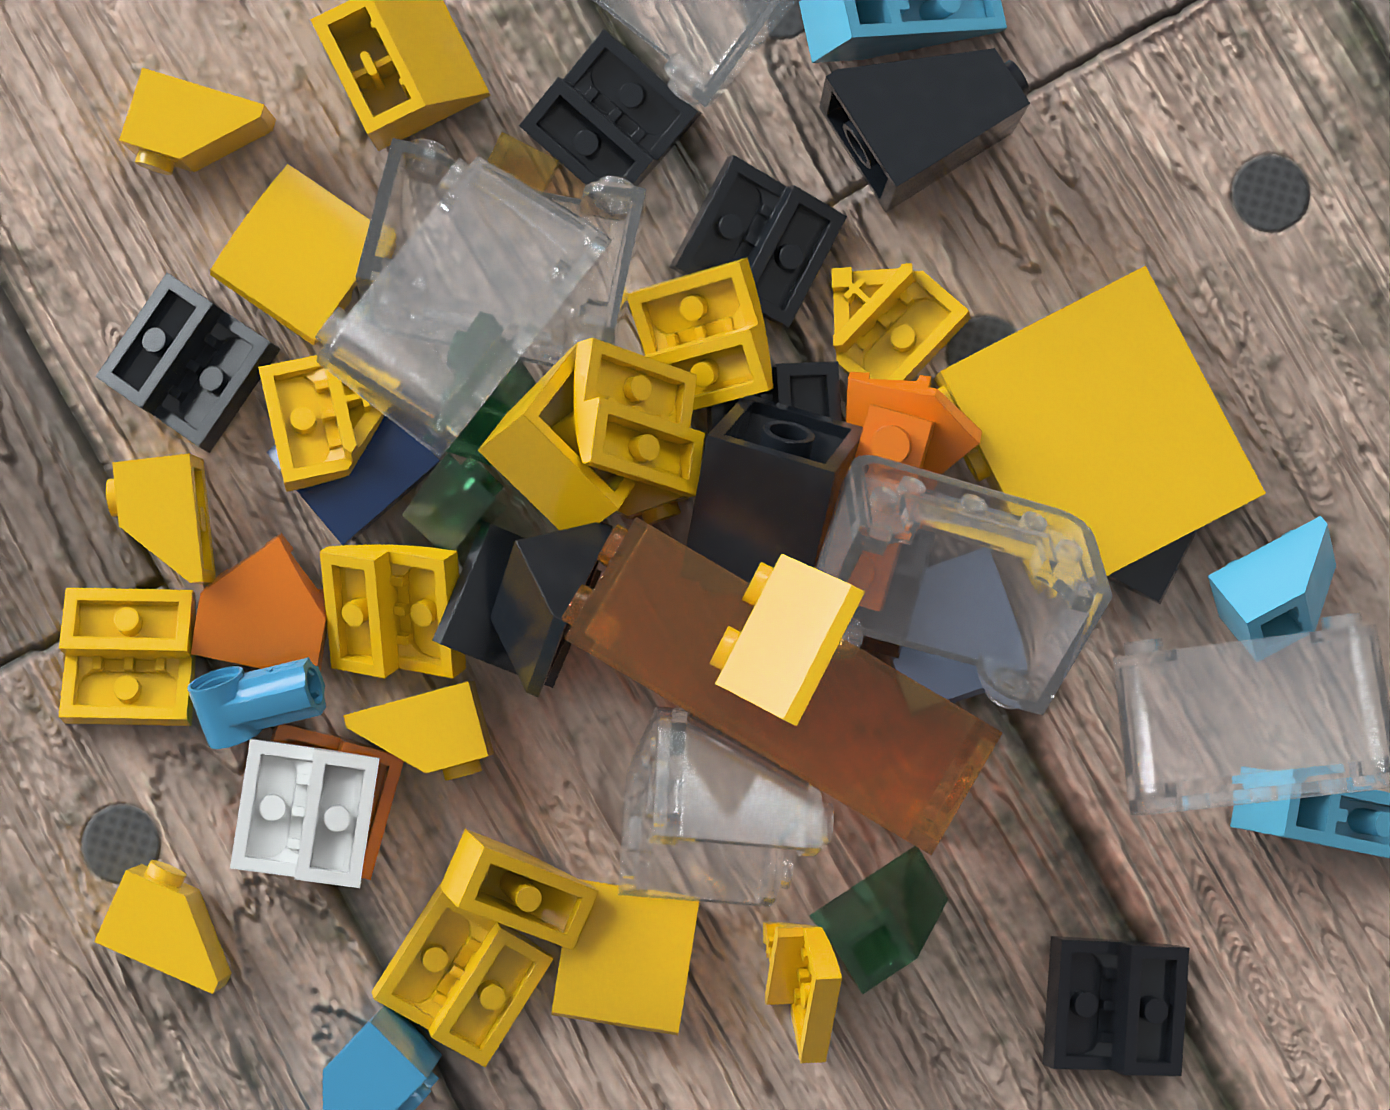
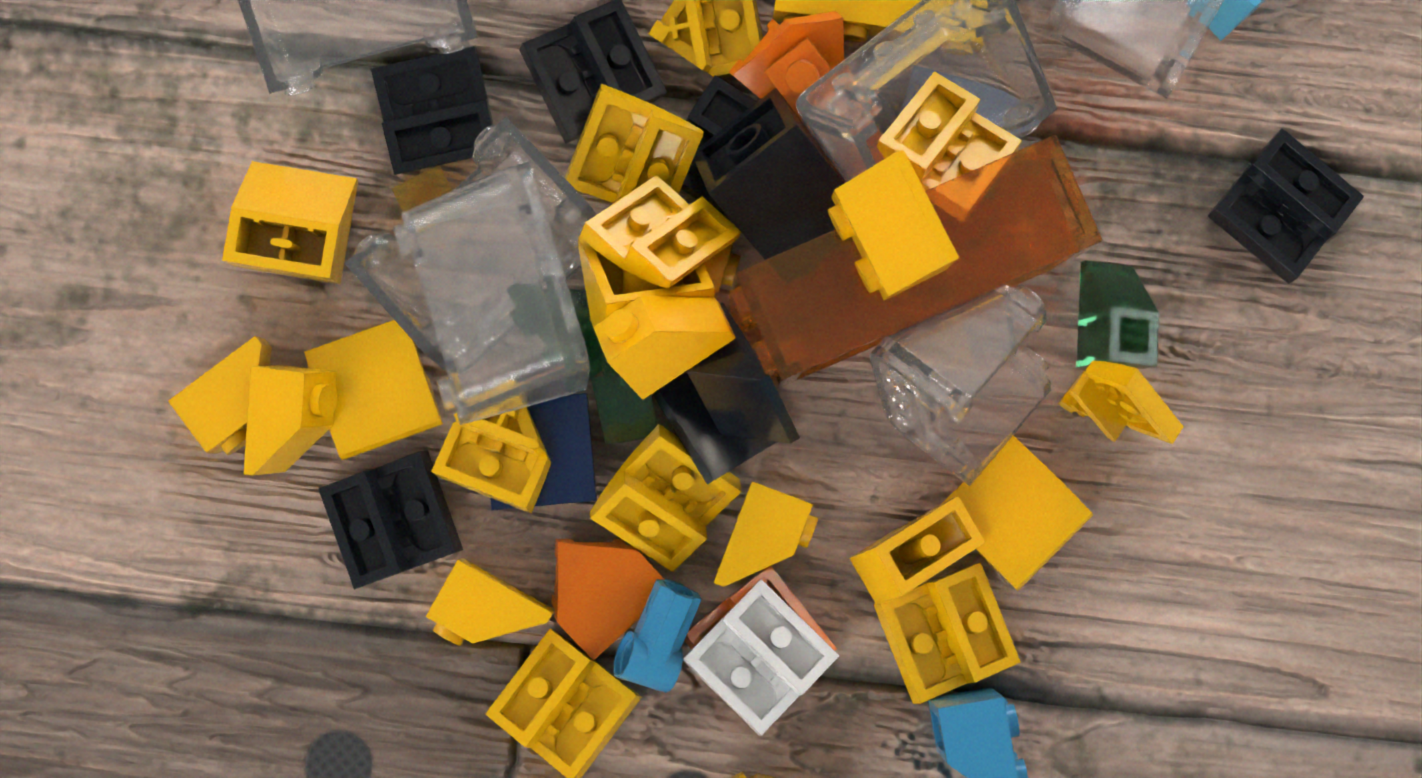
camera: 55 degrees left, 0 degrees up
(211, 189) = (286, 415): none -> yellow slope
(530, 493) = (662, 338): none -> yellow slope
(931, 626) = (945, 133): none -> yellow slope

